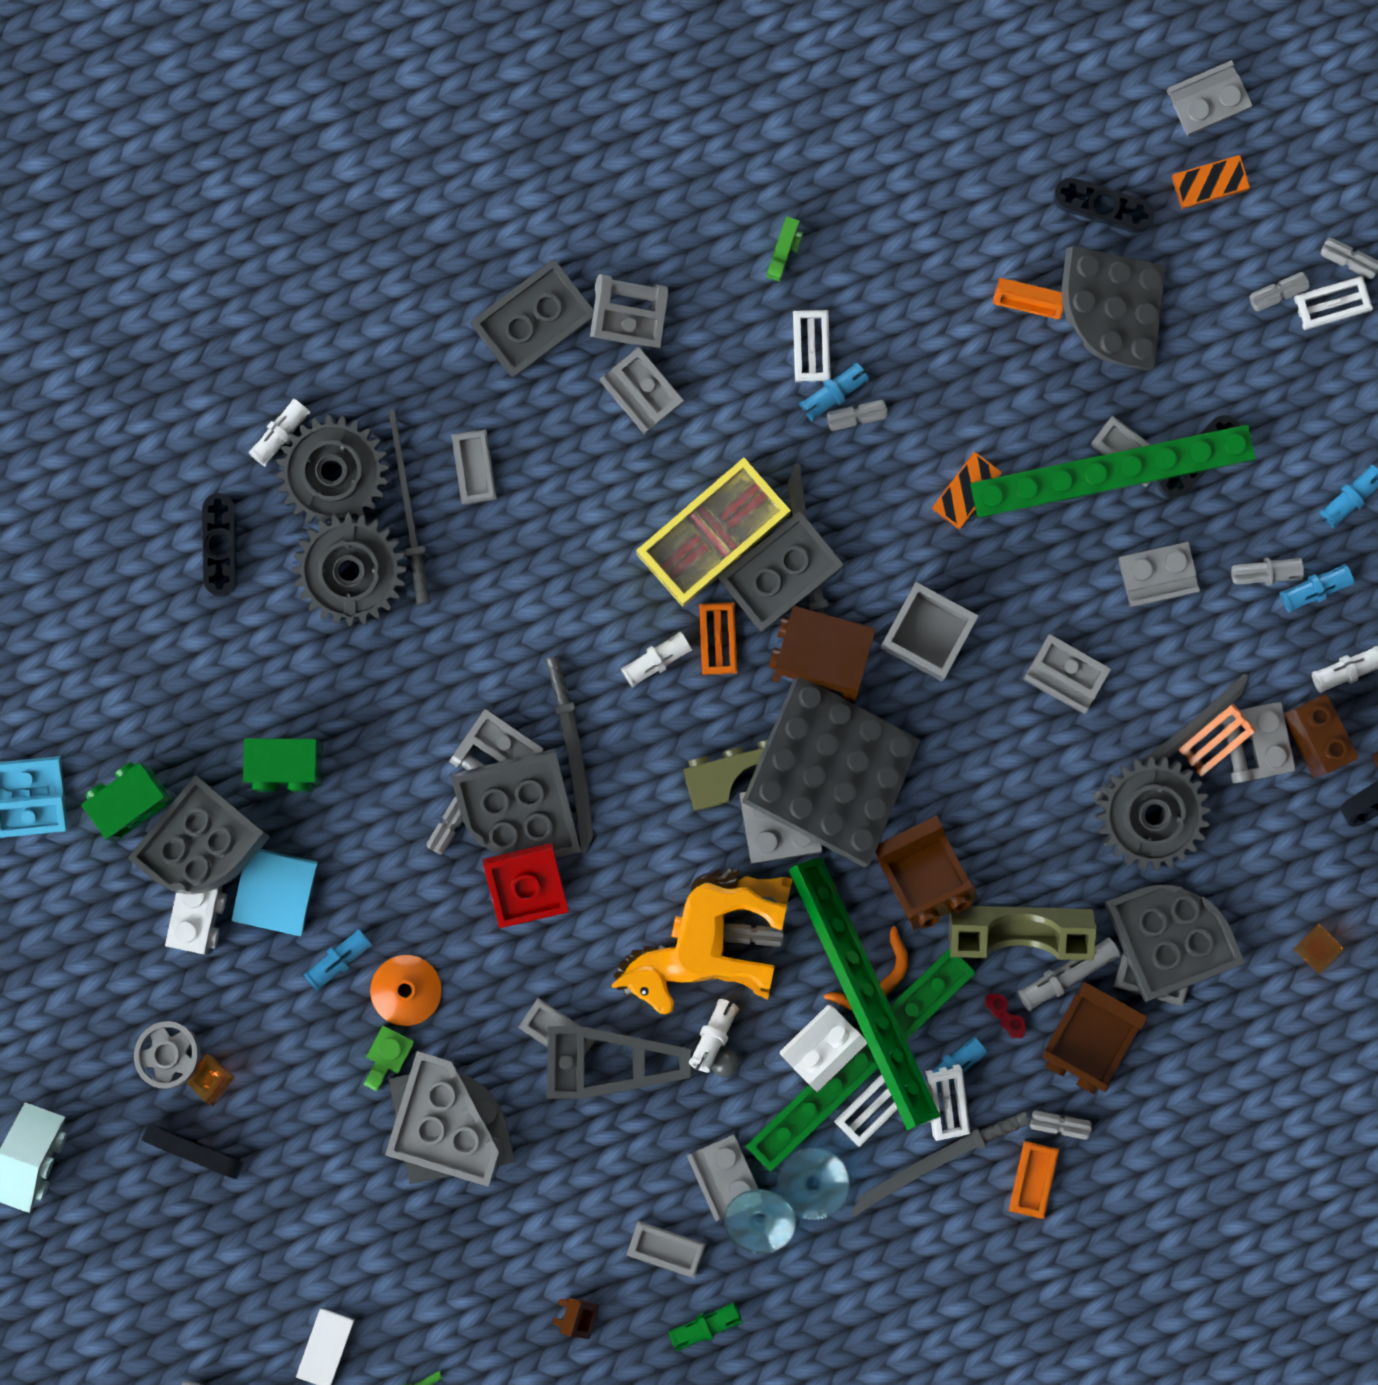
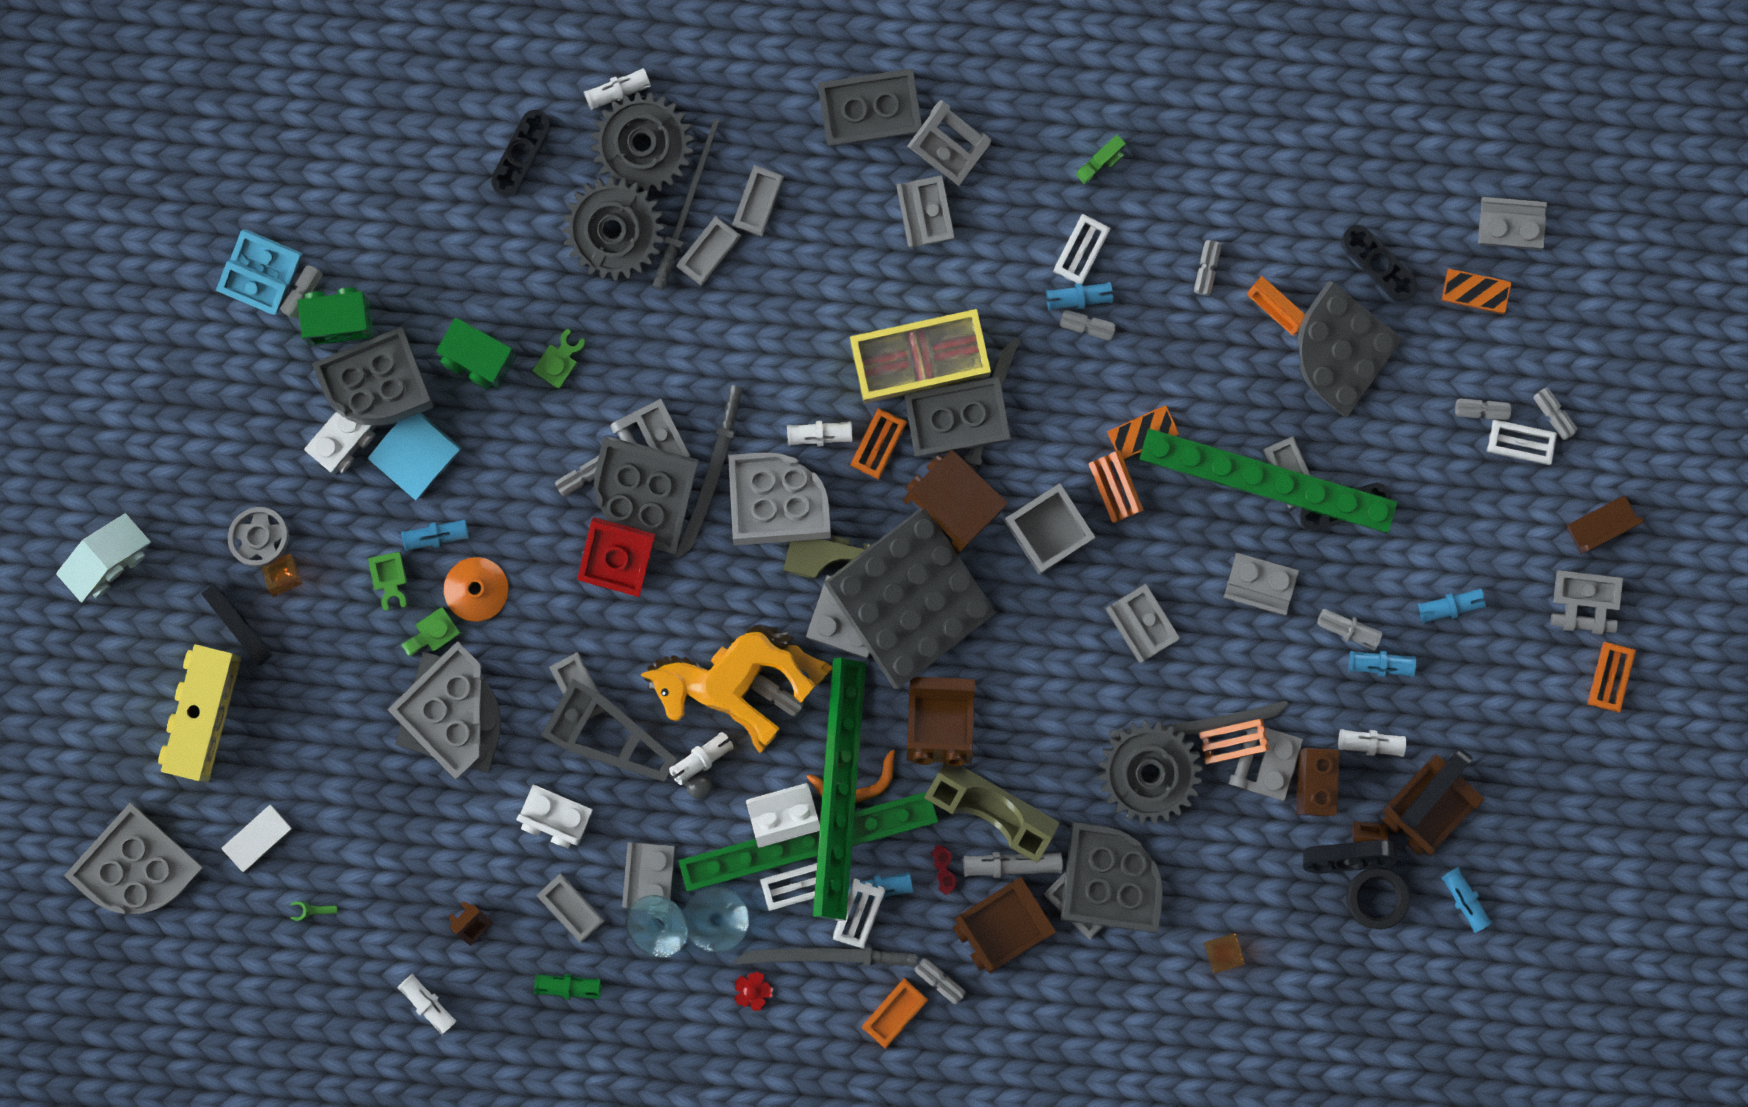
camera: 25 degrees right, 0 degrees up
(79, 785) = (305, 284): none -> light grey piece
(212, 1285) = (194, 738): none -> light yellow brick
(313, 1022) = (388, 574): none -> bright green plate
(365, 730) = (556, 363): none -> bright green plate
(452, 541) = (708, 251): none -> light grey tile
(602, 1169) = (554, 816): none -> white bracket
(650, 747) = (776, 500): none -> light grey plate
(885, 1233) = (752, 991): none -> red plant
(940, 292) = (1206, 273): none -> light grey piece
(963, 567) = (1105, 490): none -> orange tile

